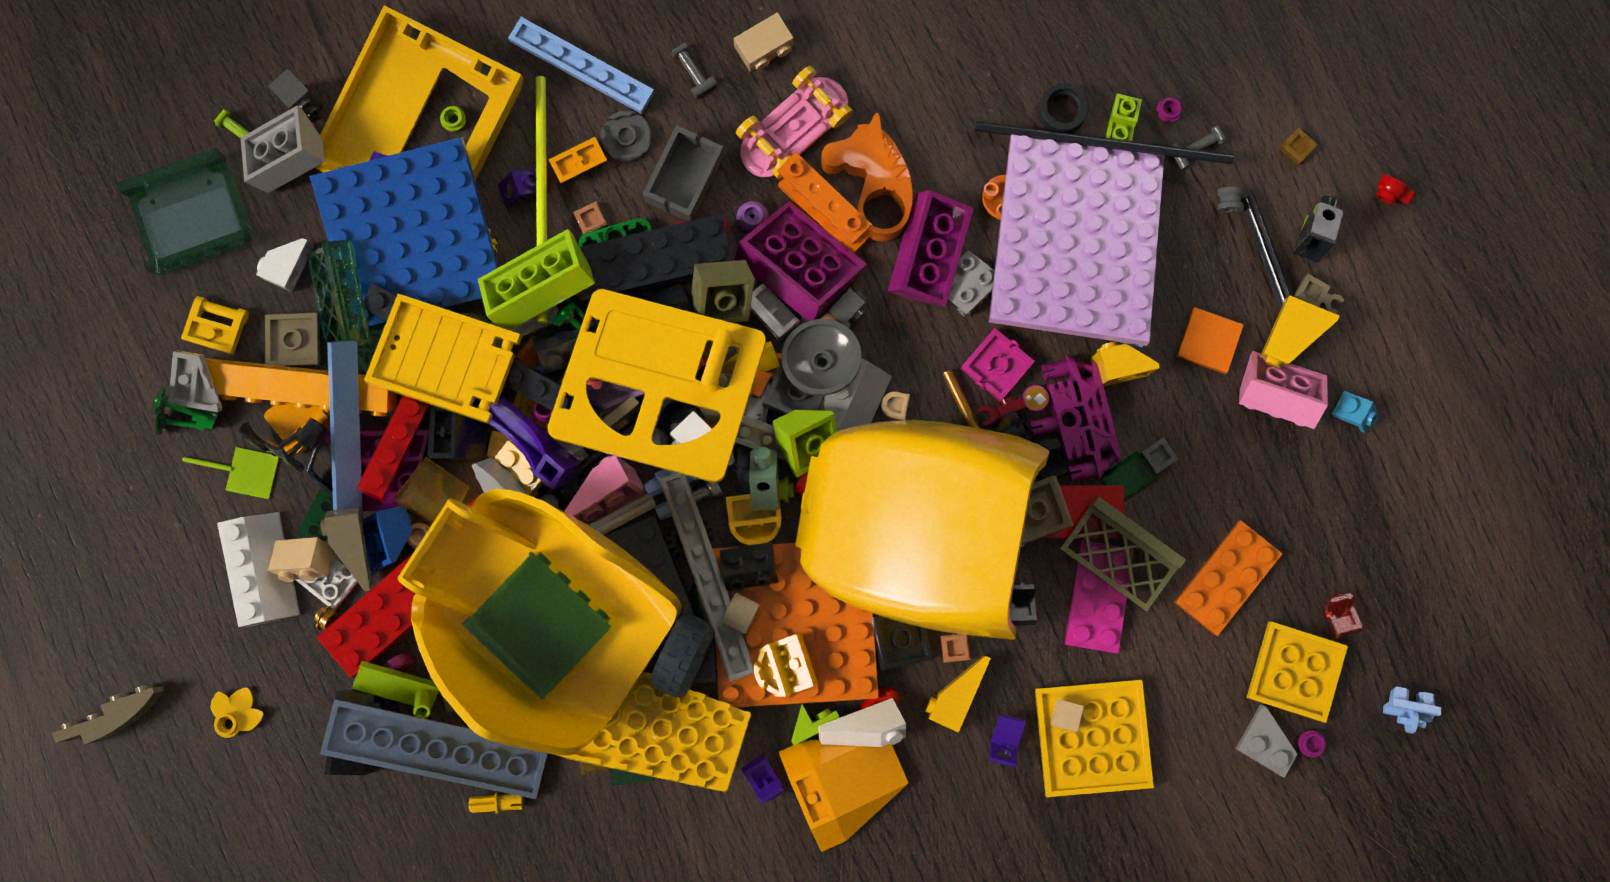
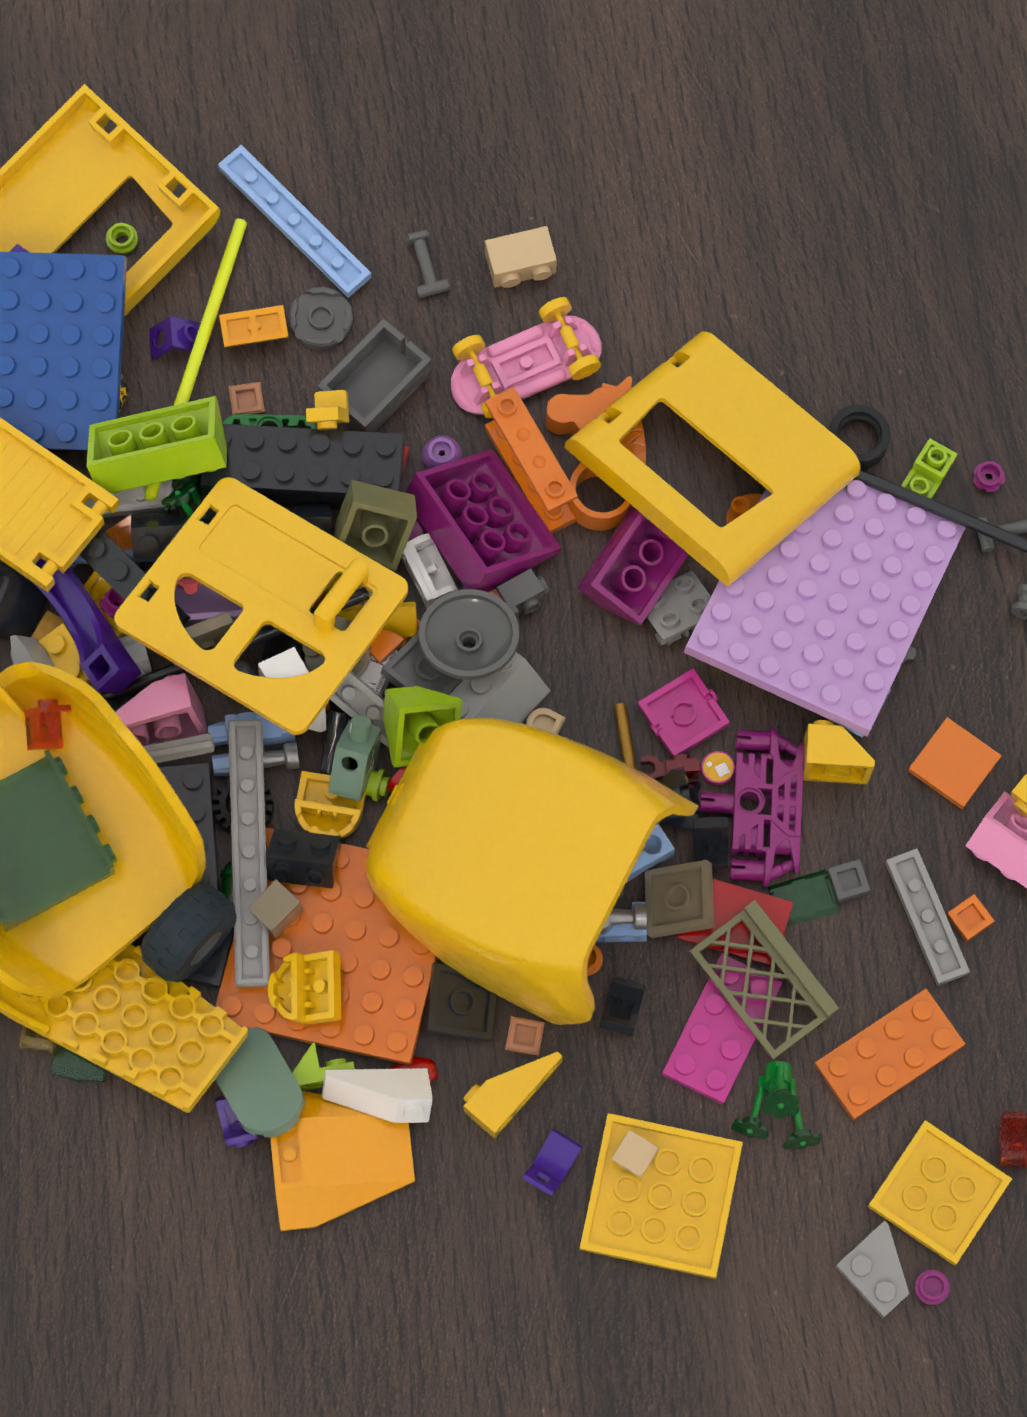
camera: 15 degrees right, 10 degrees down
(522, 534) = (45, 725): none -> clear red bracket
(658, 210) = (329, 410): none -> yellow bracket
(775, 753) = (261, 1087): none -> sand green tile
(981, 125) = (749, 424): none -> yellow door
(1156, 626) = (779, 1101): none -> plant
(1225, 465) = (927, 917): none -> light grey plate
(1256, 456) = (970, 918): none -> orange tile

